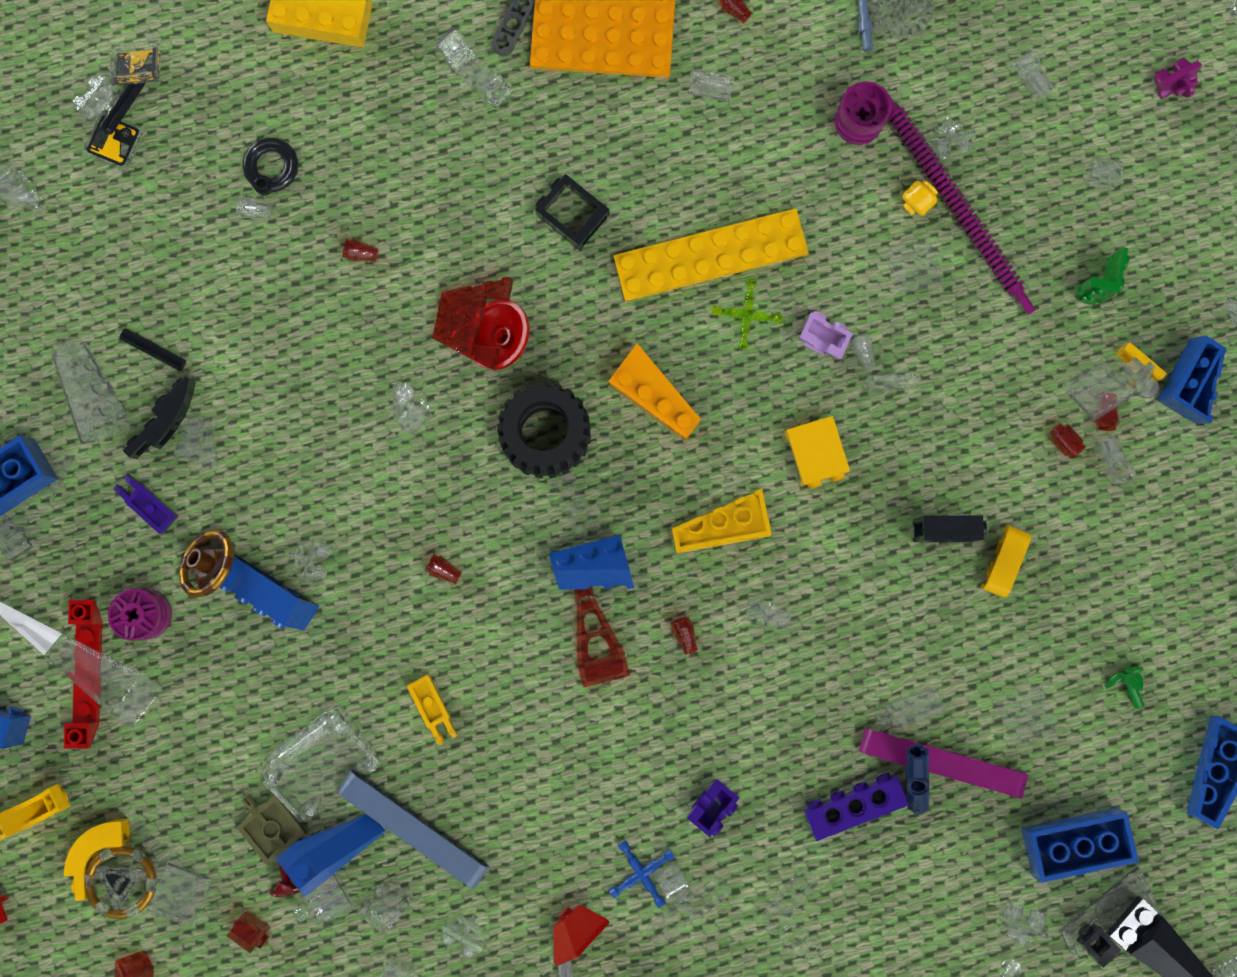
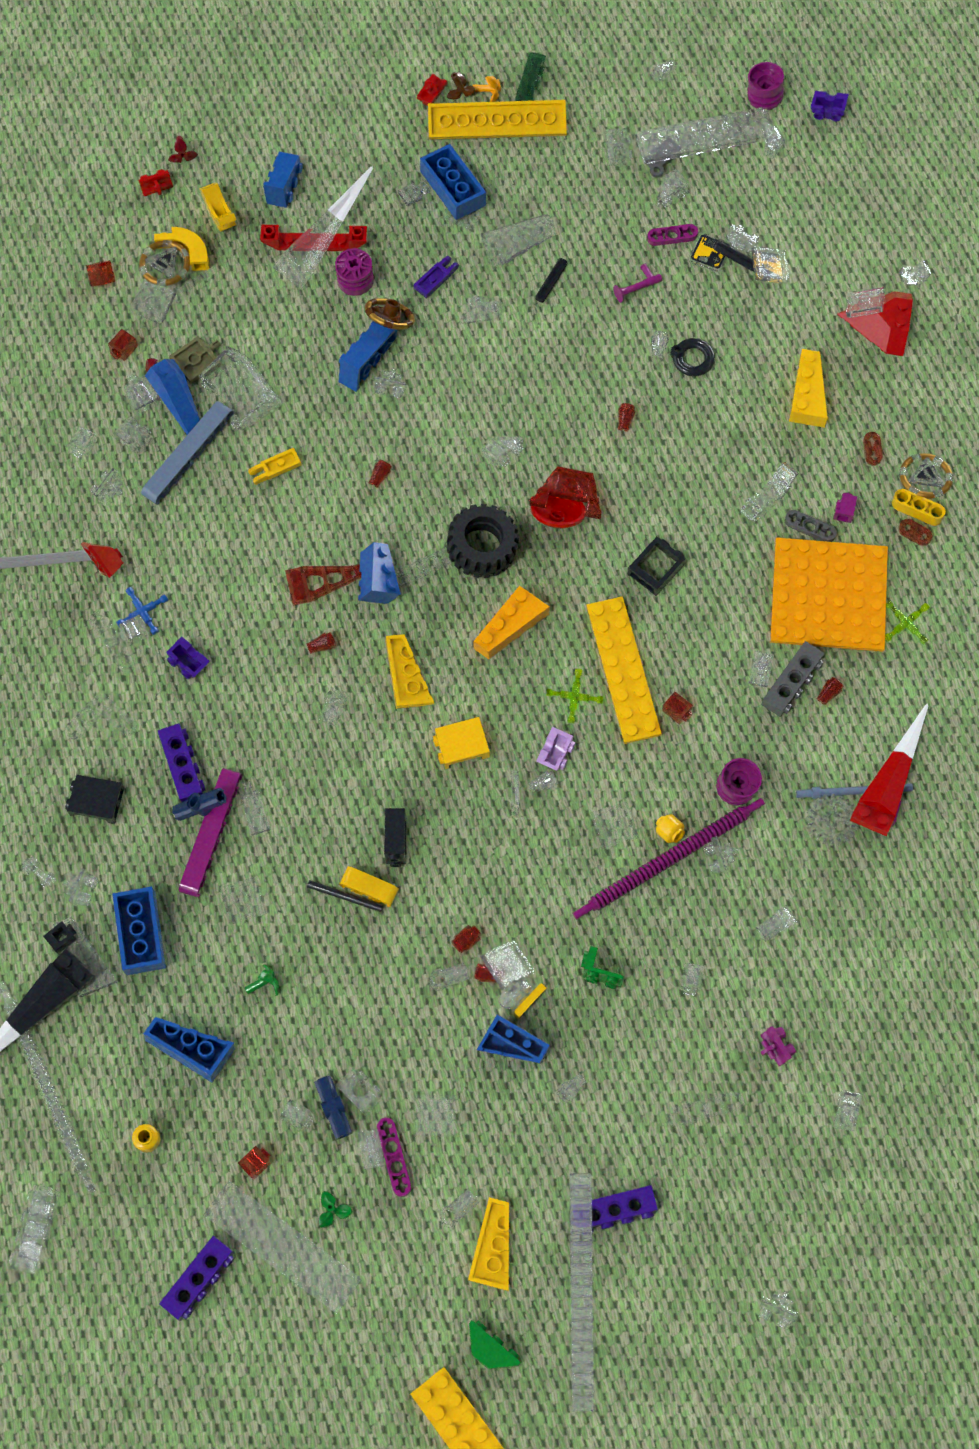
camera: 90 degrees right, 15 degrees down
(81, 207) = (676, 229): none -> magenta beam
(170, 413) = (502, 290): black slope -> none
(174, 256) = (651, 280): none -> magenta piece
(727, 61) = (806, 654): none -> dark grey brick
(764, 187) = (677, 708): none -> clear red brick
(907, 916) = (95, 798): none -> black panel
(1014, 594) = (345, 896): none -> black bar

